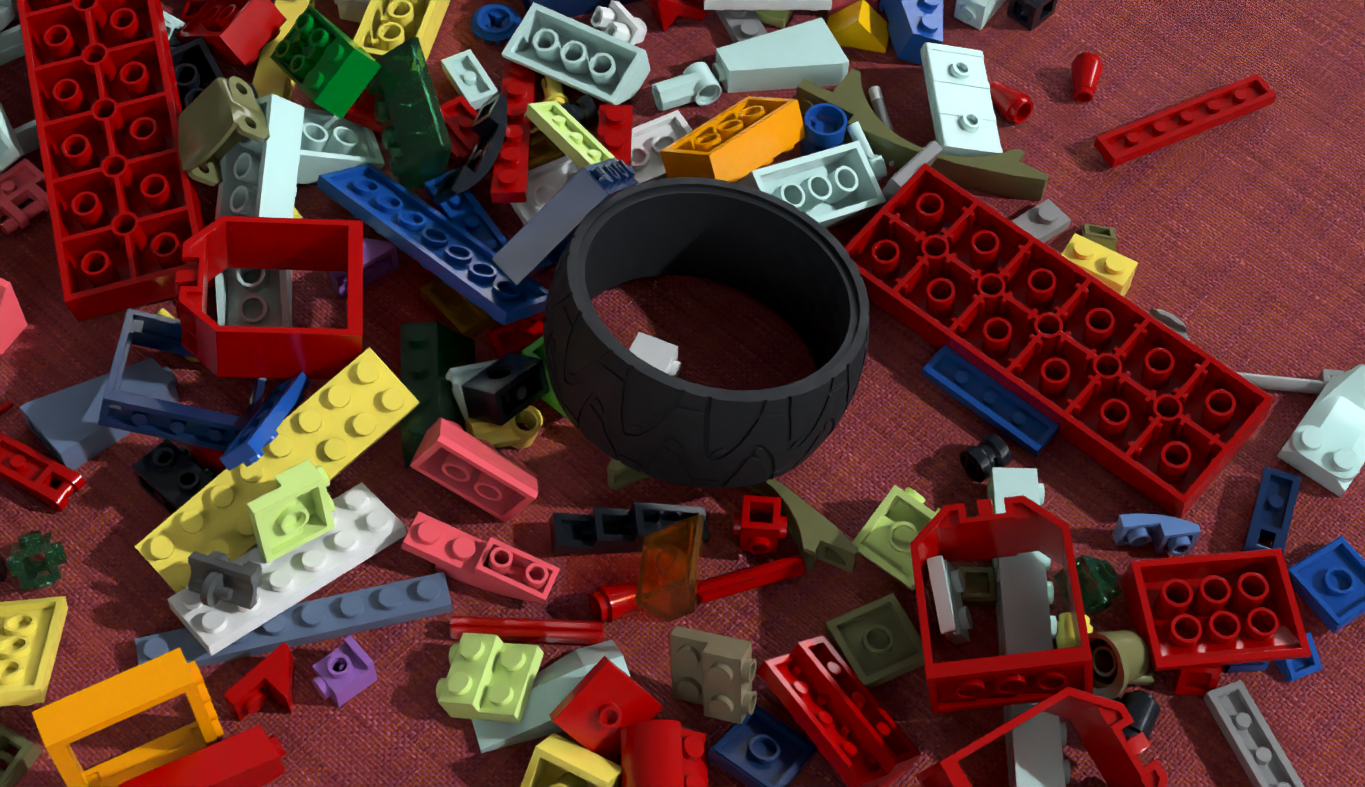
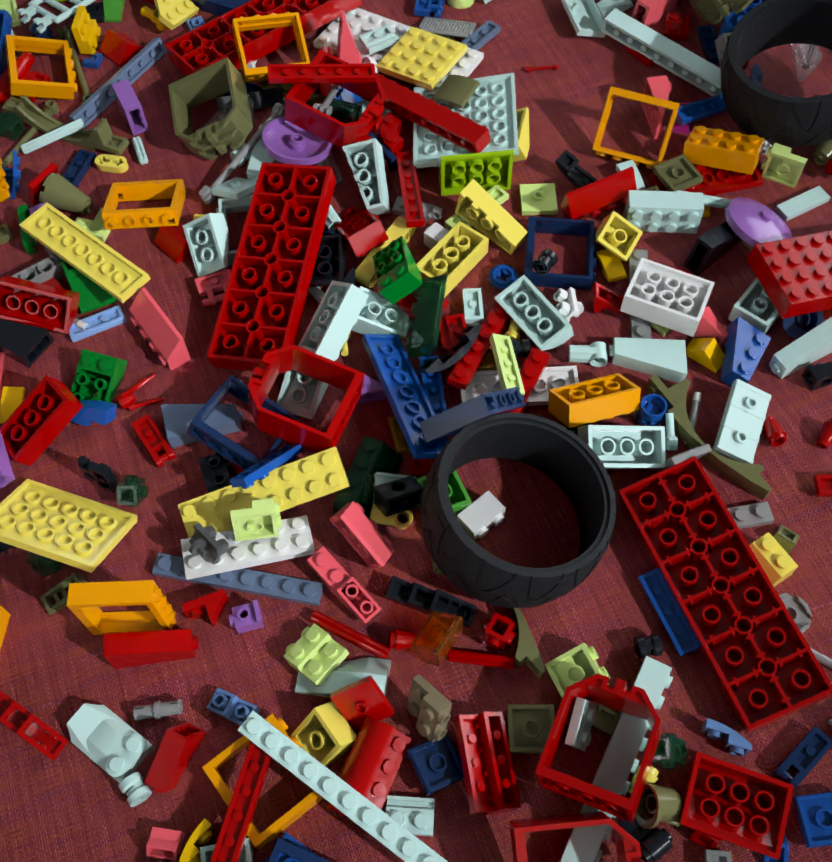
camera: 30 degrees right, 5 degrees up
(216, 124) = (319, 289): olive piece -> none

